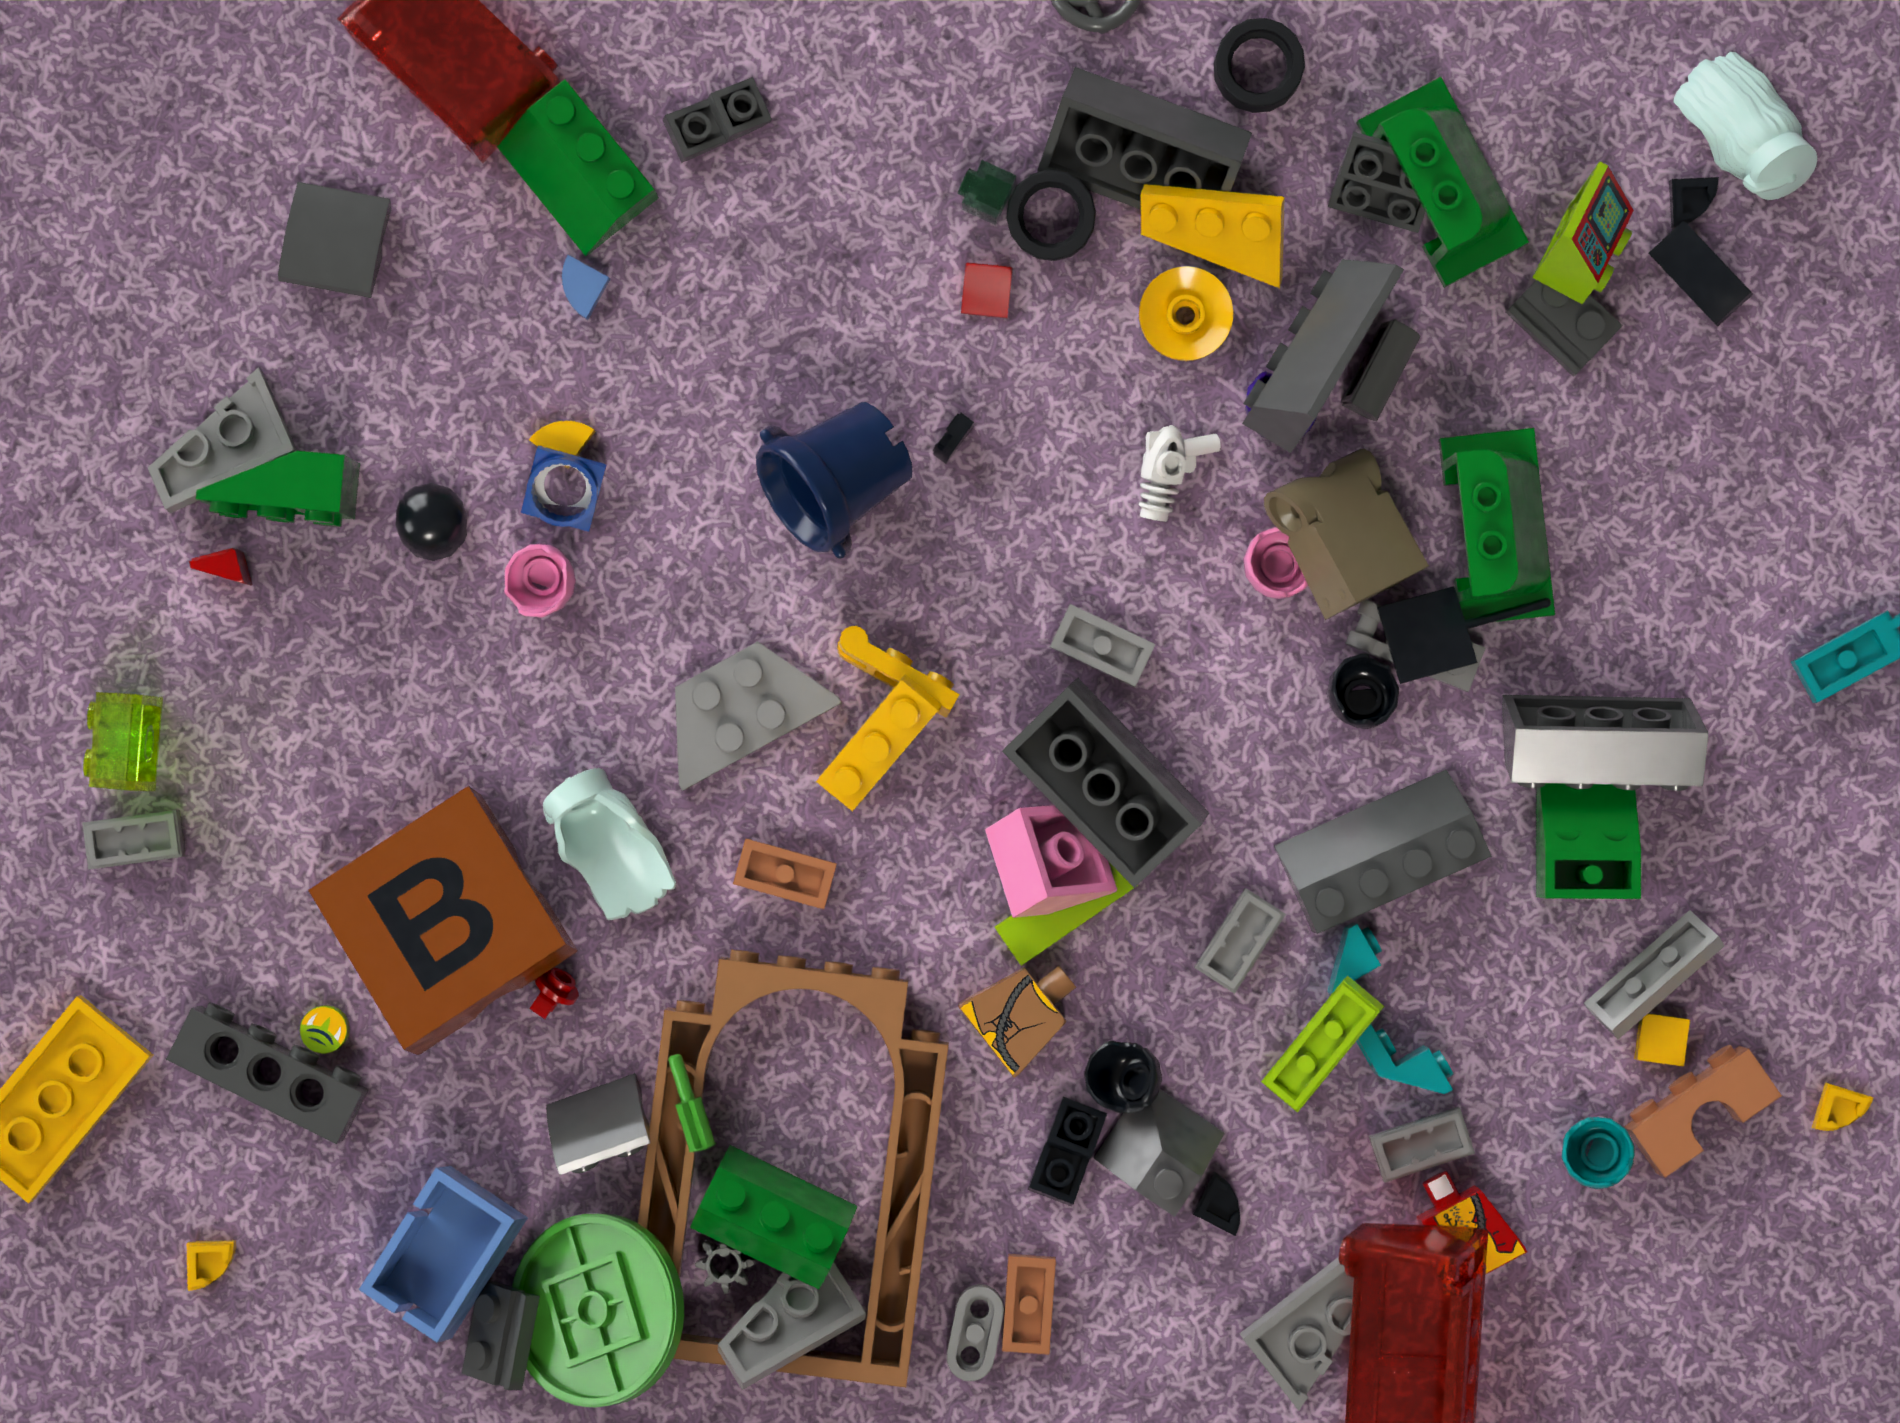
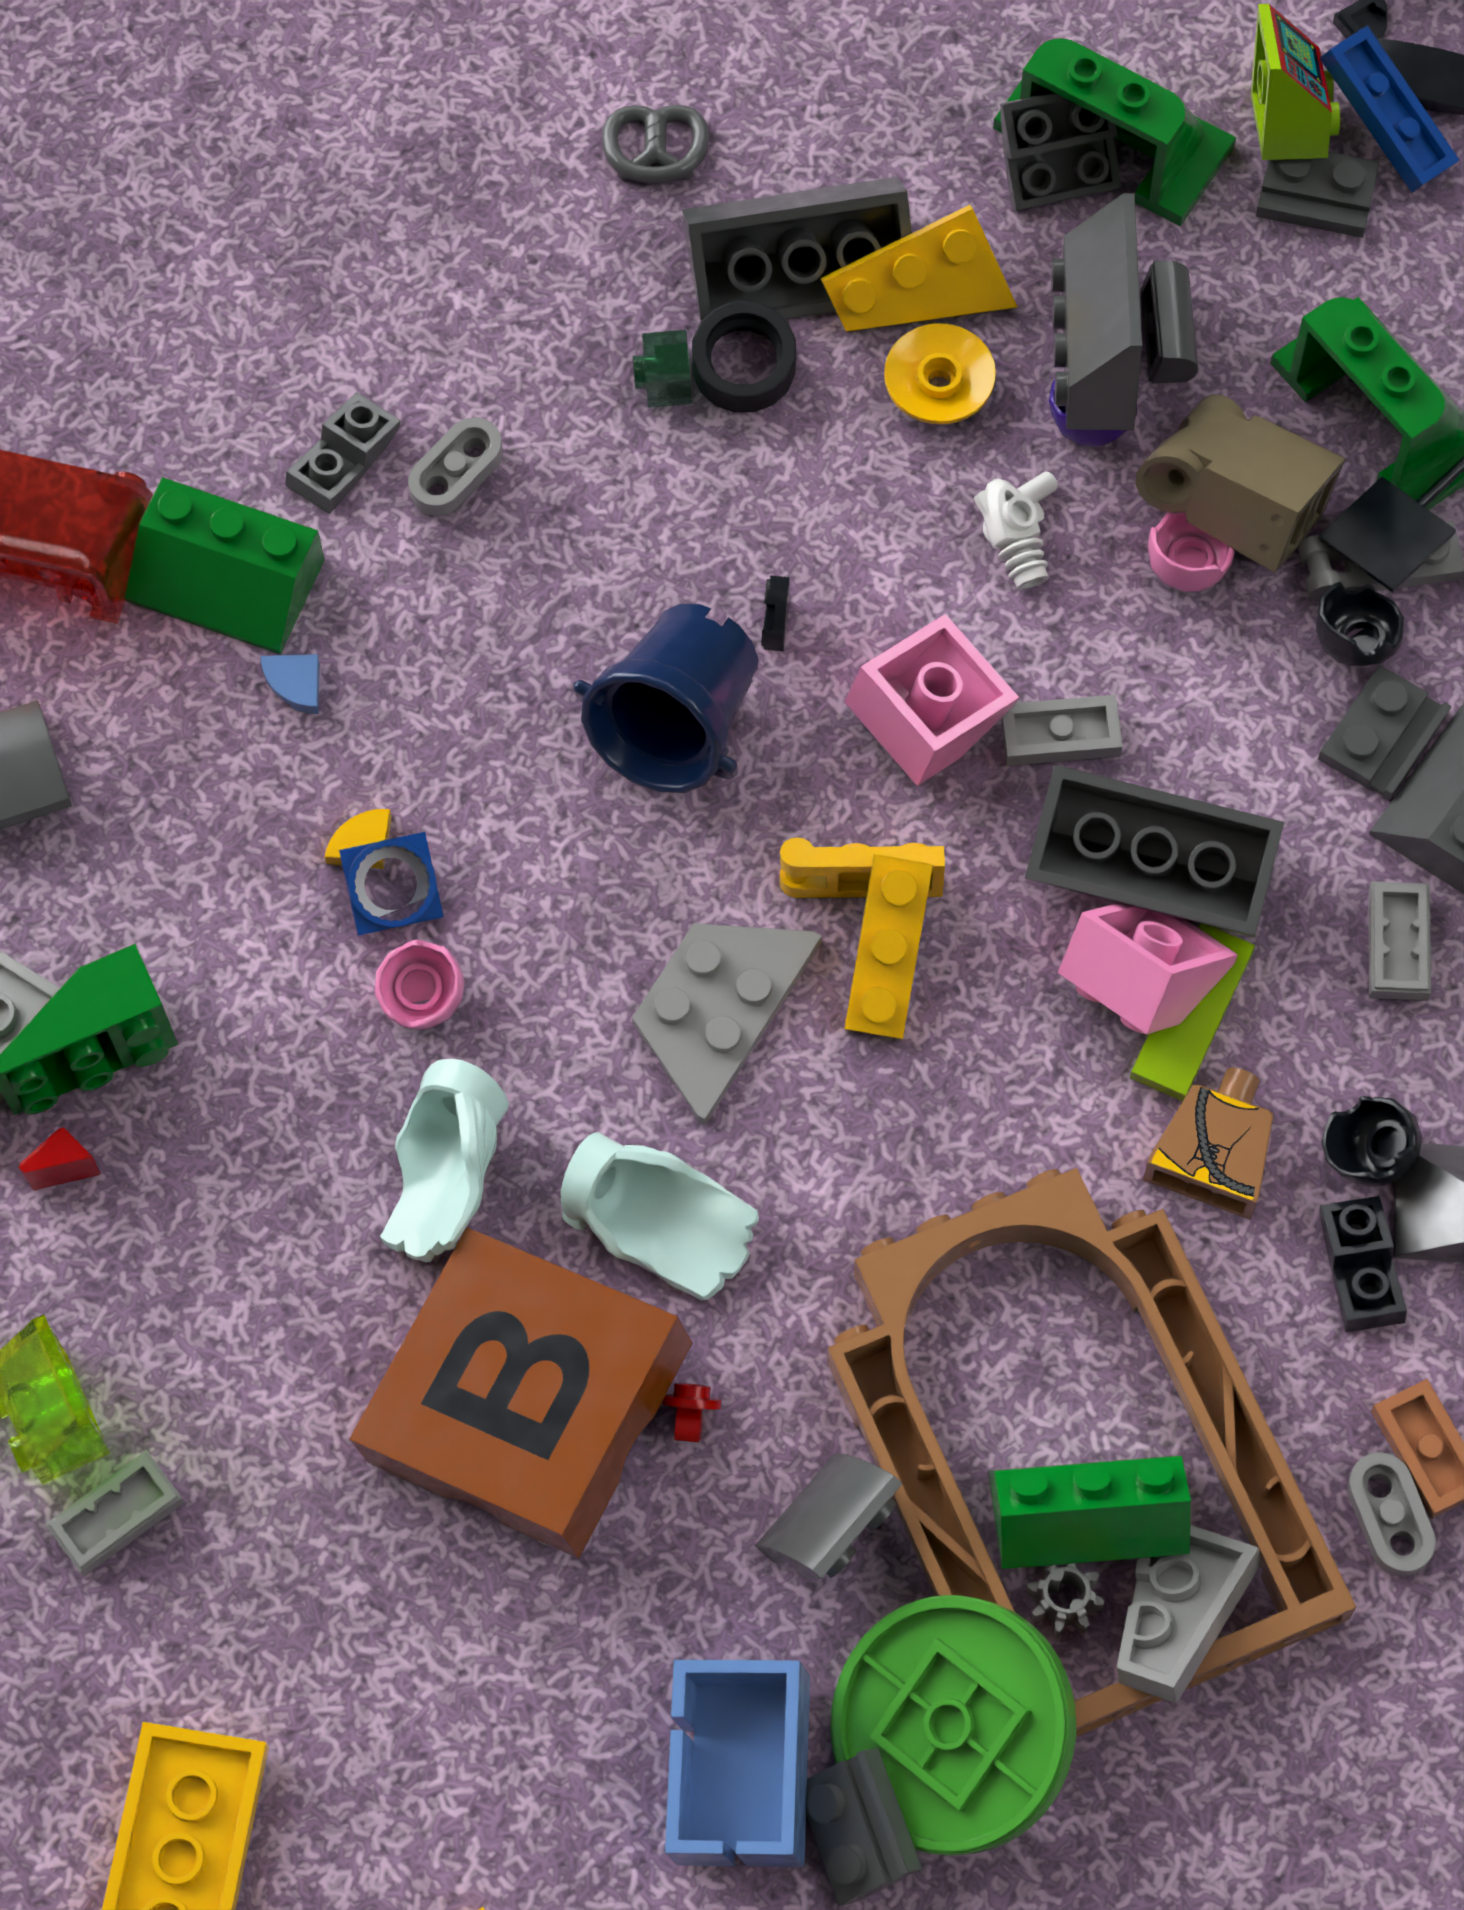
camera: 30 degrees left, 20 degrees down
(198, 1052) = (511, 1697): dark grey brick -> none
(324, 1029) = (452, 1603): tile -> none
(431, 521) = (265, 997): black hair -> none
(487, 718) = (444, 1157): none -> light aqua hair
(691, 1109) = (924, 1432): bright green axle -> none
(785, 873) = (870, 1142): nougat plate -> none
(790, 179) = (451, 467): none -> light grey plate
(986, 290) = (720, 461): red slope -> none
(1021, 572) = (929, 698): none -> bright pink slope
(1271, 31) = (861, 156): black tyre -> none
(1331, 778) = (1384, 732): none -> dark grey plate
(1654, 291) = (1389, 109): none -> blue plate

